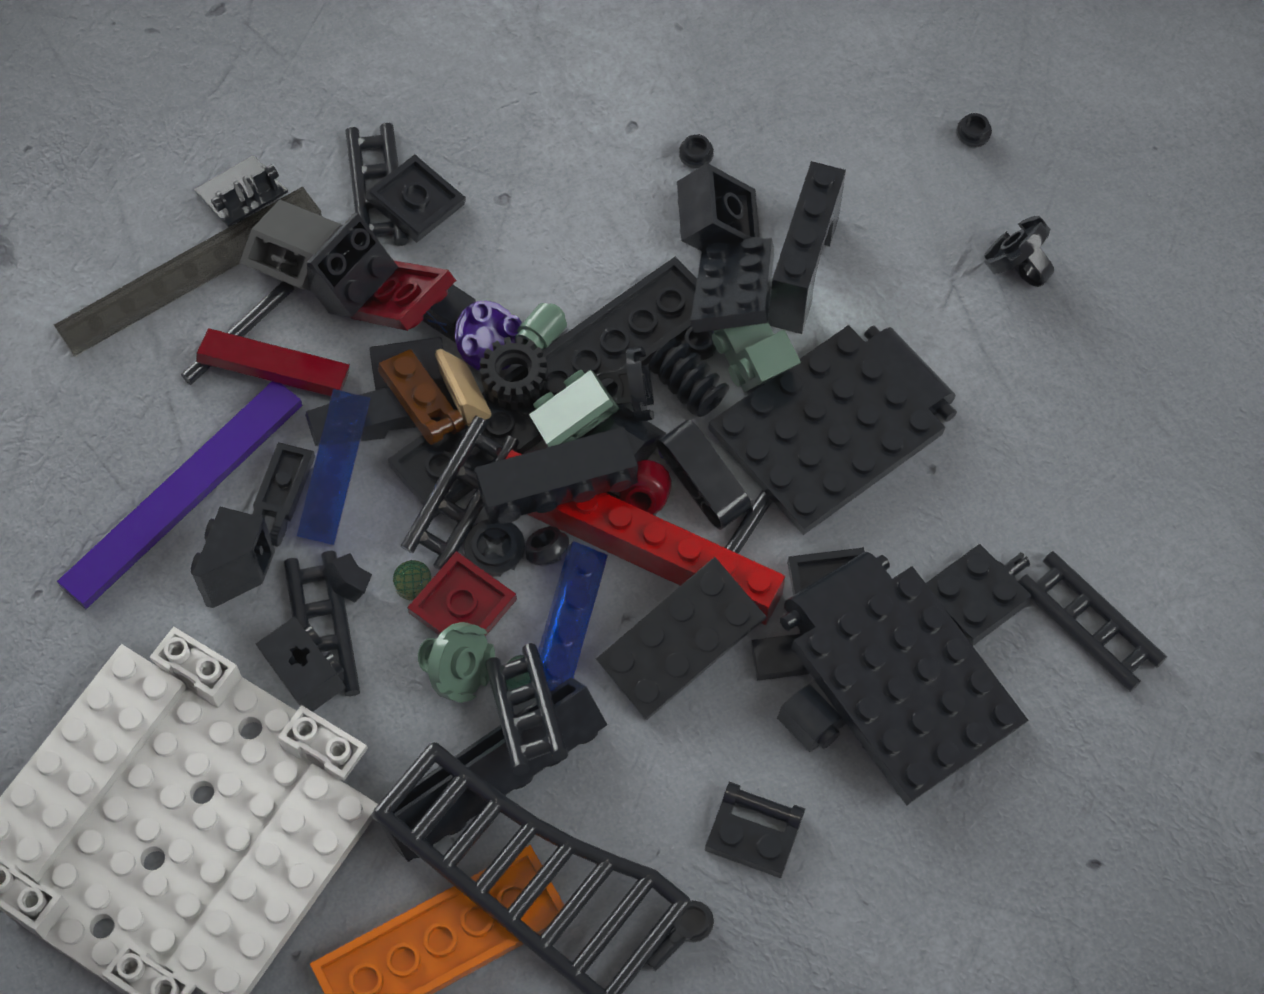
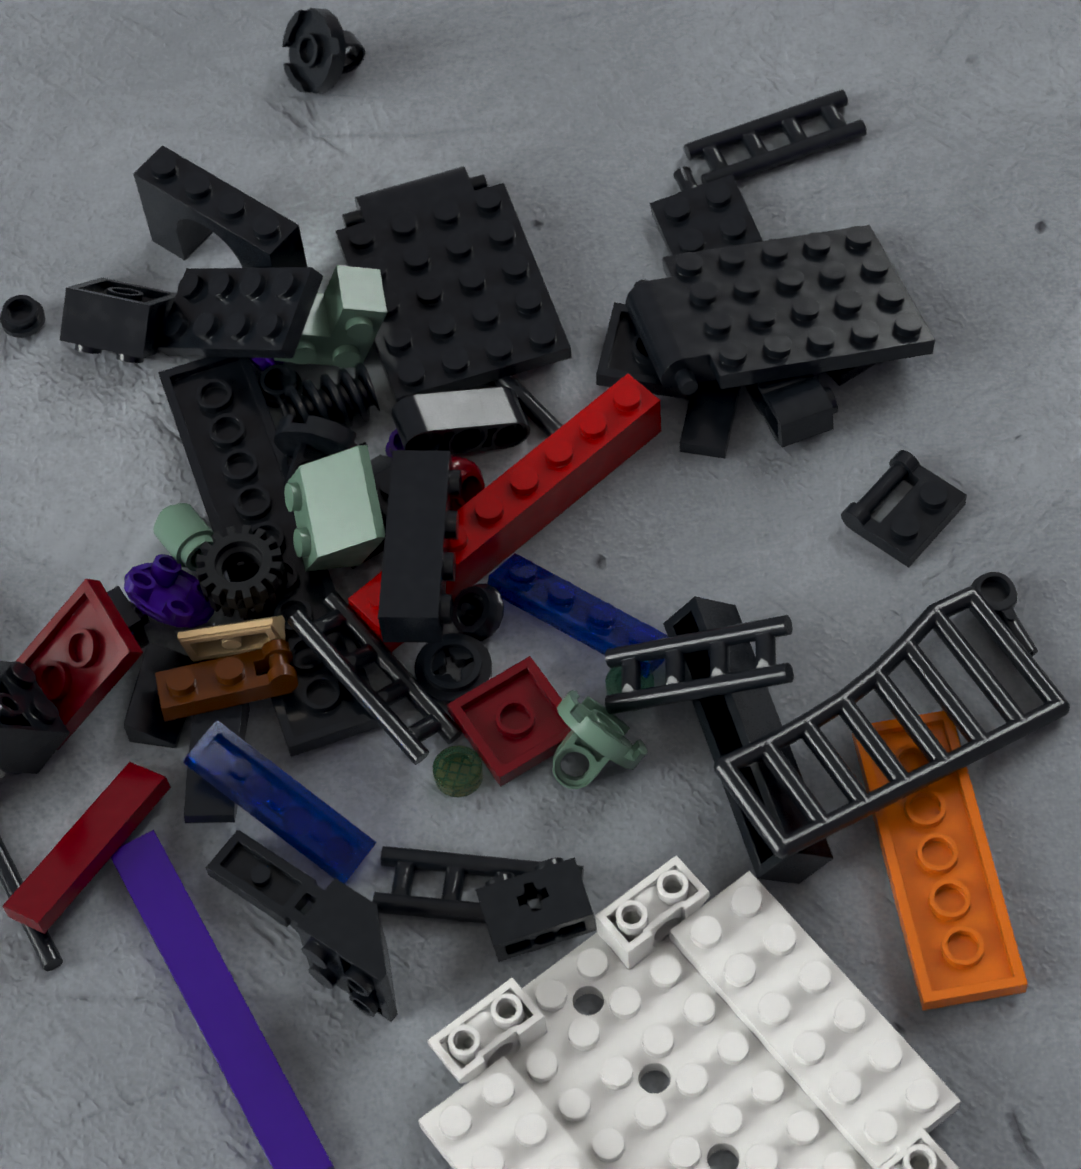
camera: 65 degrees left, 5 degrees down
(347, 577) = (432, 834): black piece -> none
(681, 638) = (660, 499): black plate -> none
(974, 130) = (139, 52): black plate -> none

